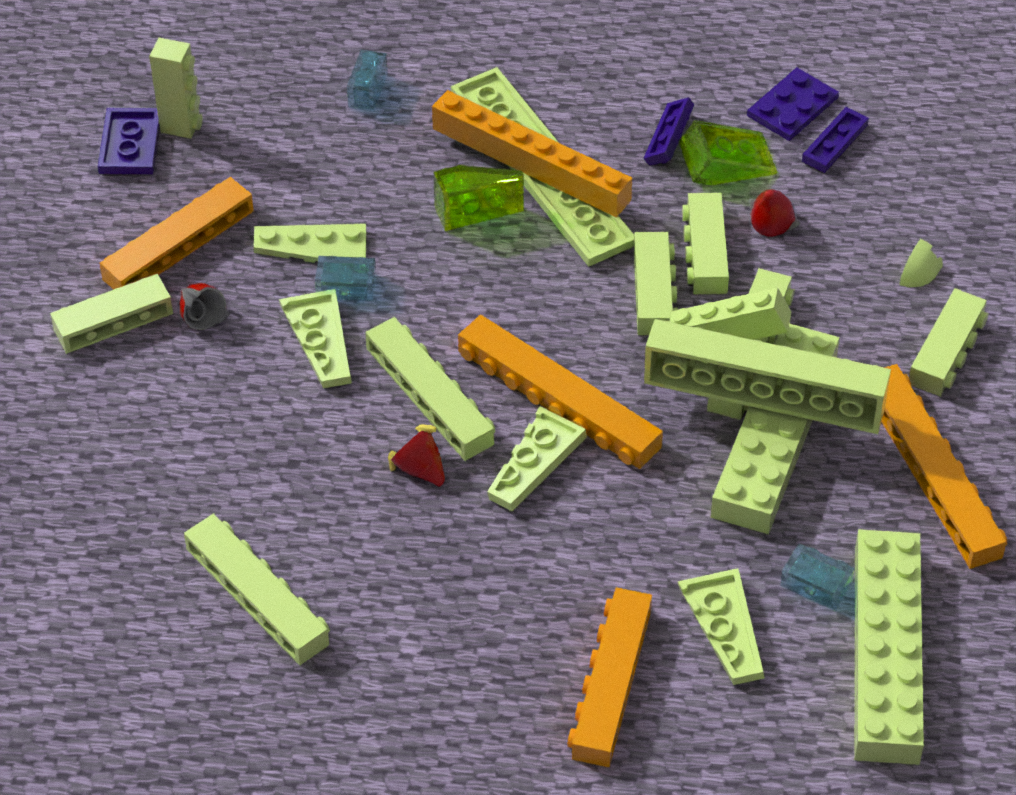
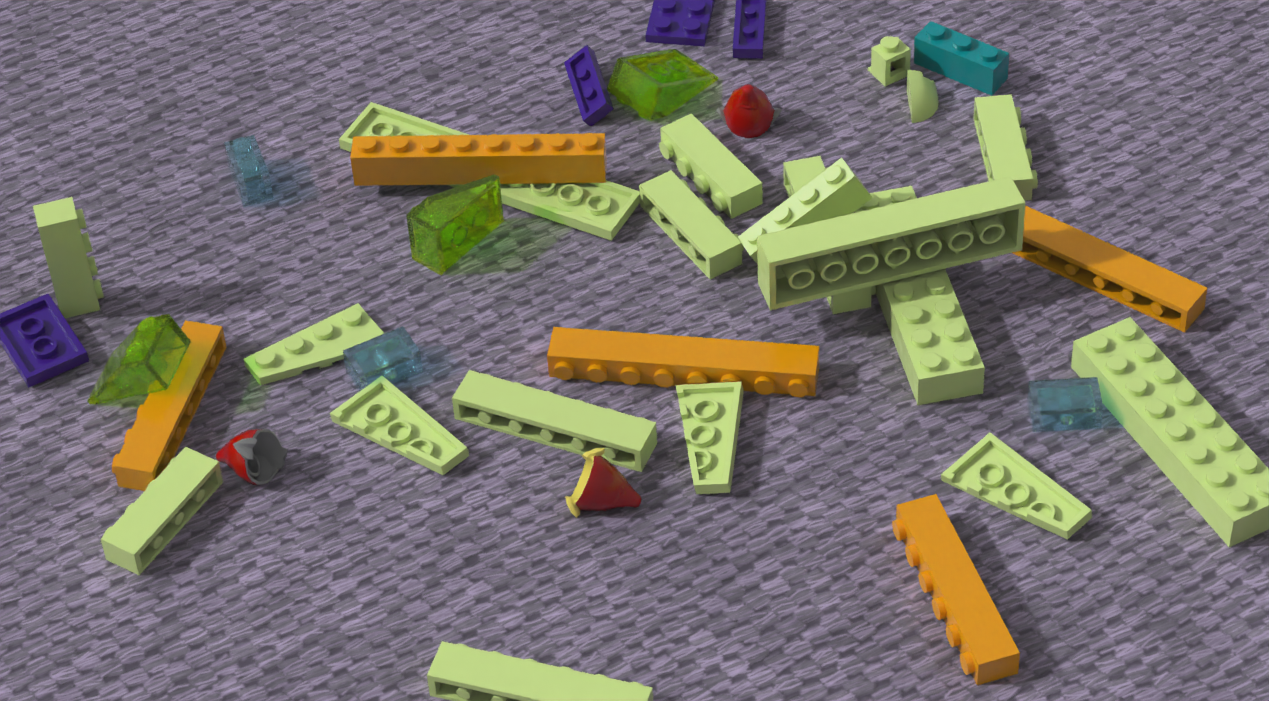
camera: 30 degrees left, 5 degrees down
(177, 194) = (142, 361): none -> clear neon green slope
(917, 217) = (890, 53): none -> yellowish green brick
(977, 249) = (961, 58): none -> teal brick

